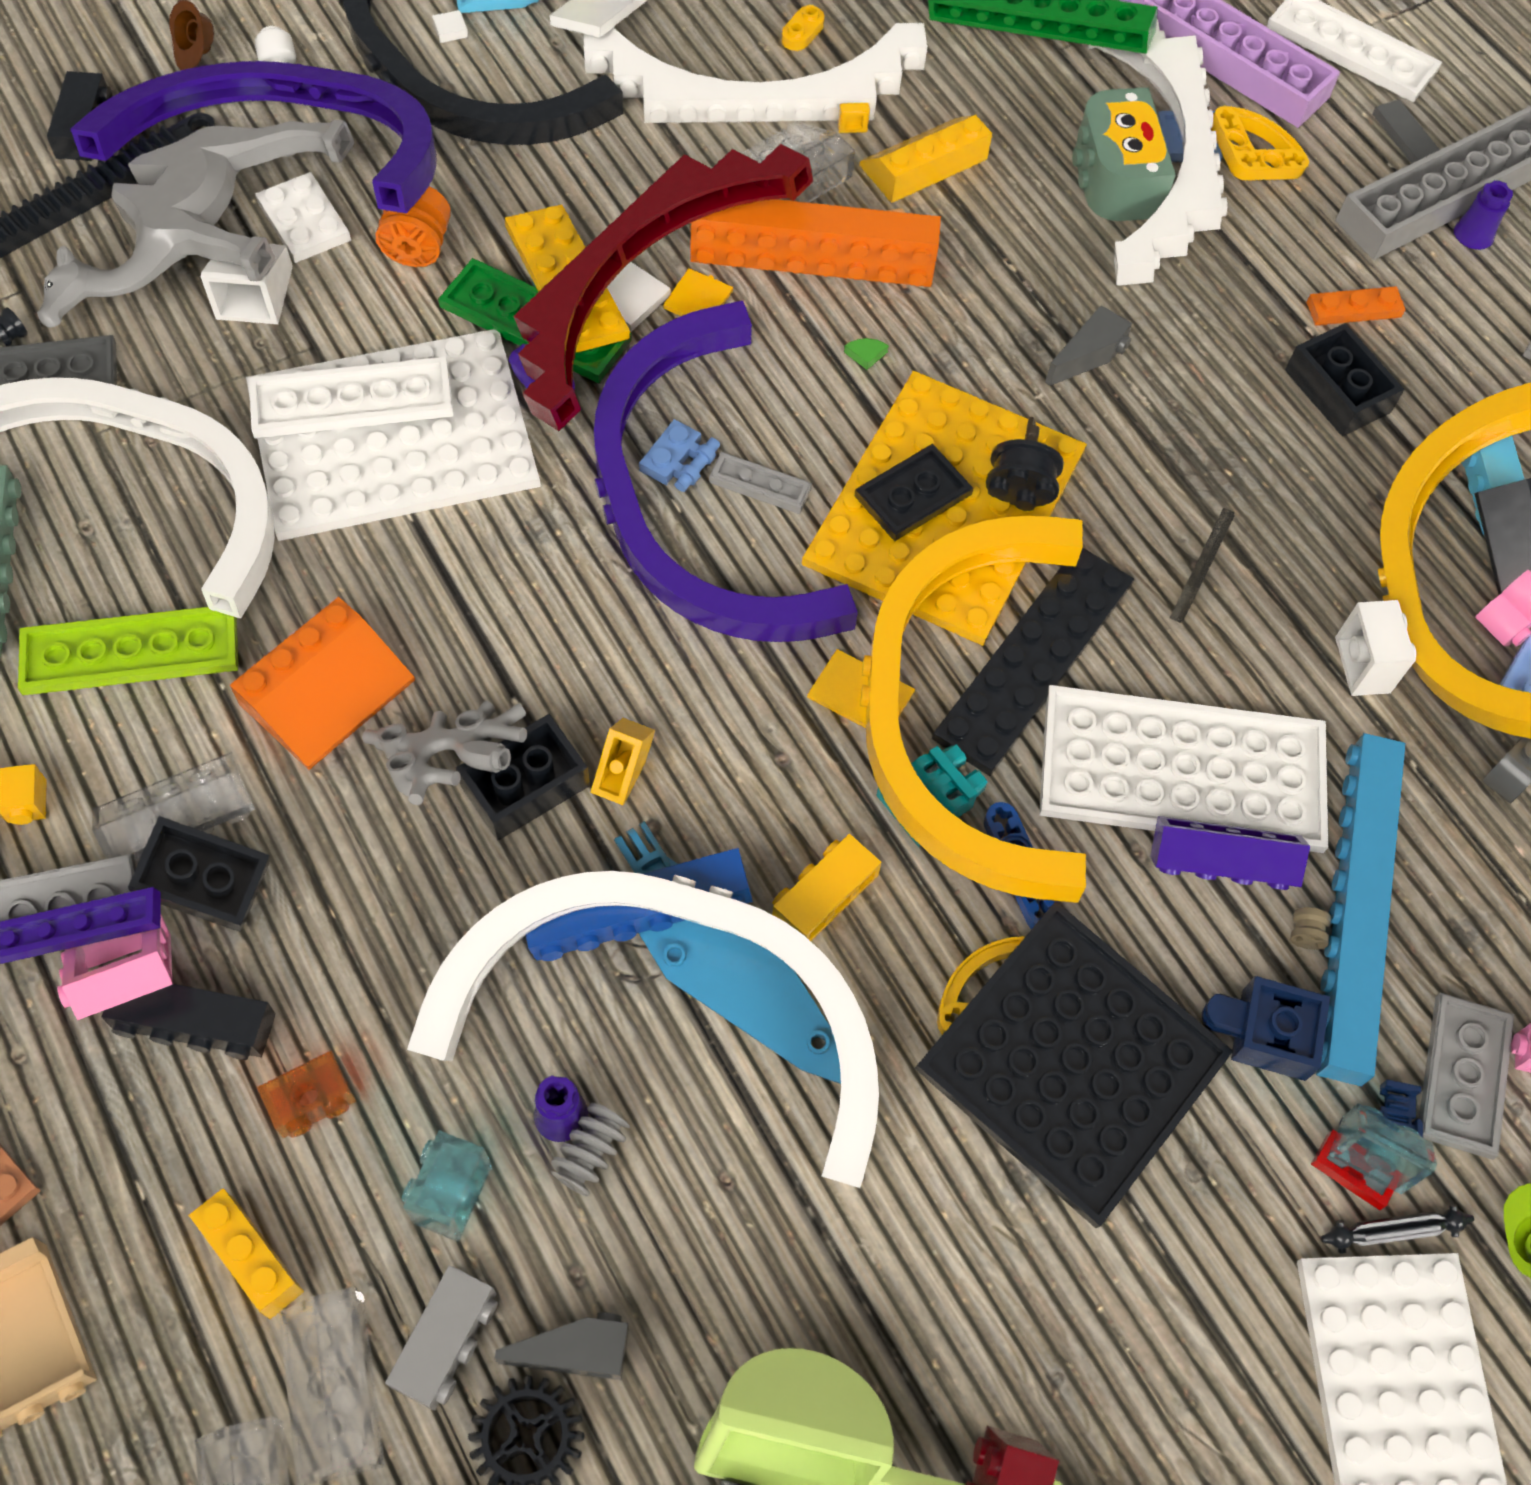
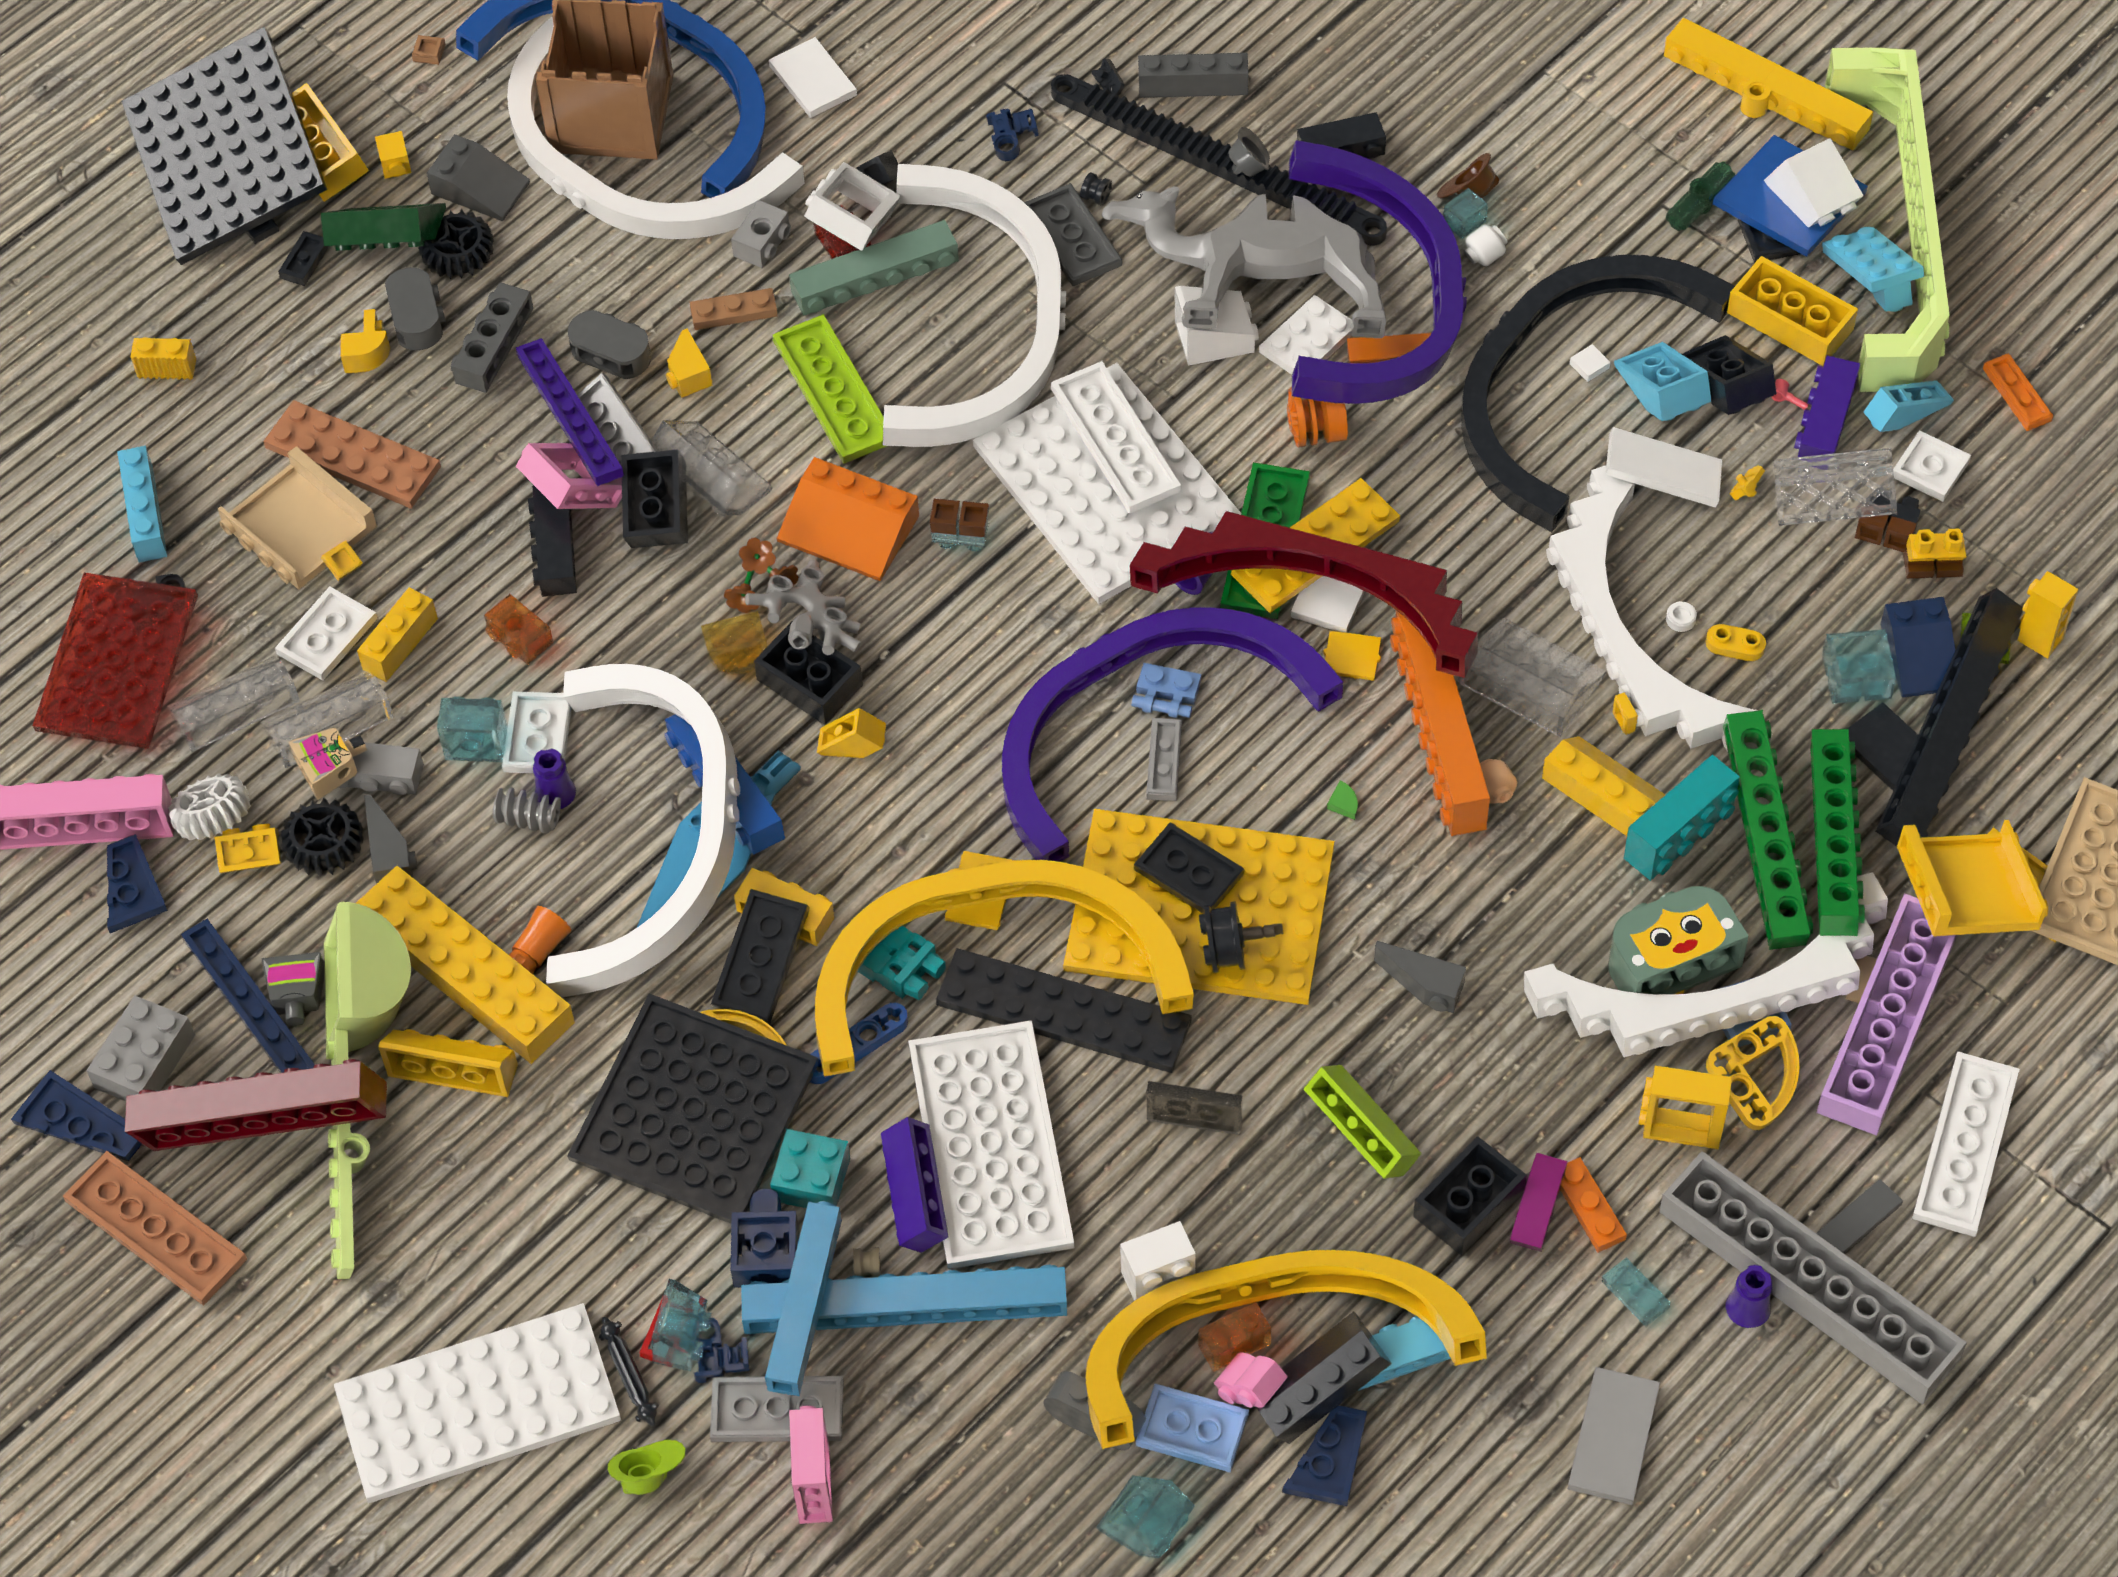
camera: 80 degrees right, 5 degrees down
(59, 180) = (1248, 154): none -> dark grey piece
(84, 1304) = (342, 560): none -> yellow tile
(195, 1355) = (326, 633): none -> white plate
(225, 46) = (1465, 213): none -> clear light blue brick
(347, 175) = (1381, 349): none -> orange tile
(355, 777) = (756, 558): none -> dark orange plant
(395, 566) = (952, 531): none -> reddish brown hips
(427, 1395) = (326, 759): none -> torso
(442, 847) = (735, 643): none -> clear yellow slope
(468, 1108) = (535, 724): none -> white tile
(759, 54) = (1681, 616): none -> white tile
(786, 1186) = (539, 938): none -> orange plant
(787, 1290) = (471, 967): none -> yellow brick
(890, 931) = (760, 955): none -> black tile
(932, 1338) = (448, 1062): none -> yellow slope
(981, 88) = (1681, 818): none -> teal brick
(1016, 54) = (1779, 929): none -> green brick
(1186, 954) = (810, 1169): none -> teal brick
(1244, 437) = (1362, 1121): none -> lime brick
(1303, 188) = (1680, 1125): none -> yellow window
(1375, 996) = (803, 1298): none -> dark azure brick
(1379, 339) = (1538, 1202): none -> magenta slope
(1450, 300) = (1636, 1292): none -> clear light blue plate
(1458, 612) = (1235, 1333): none -> clear orange brick

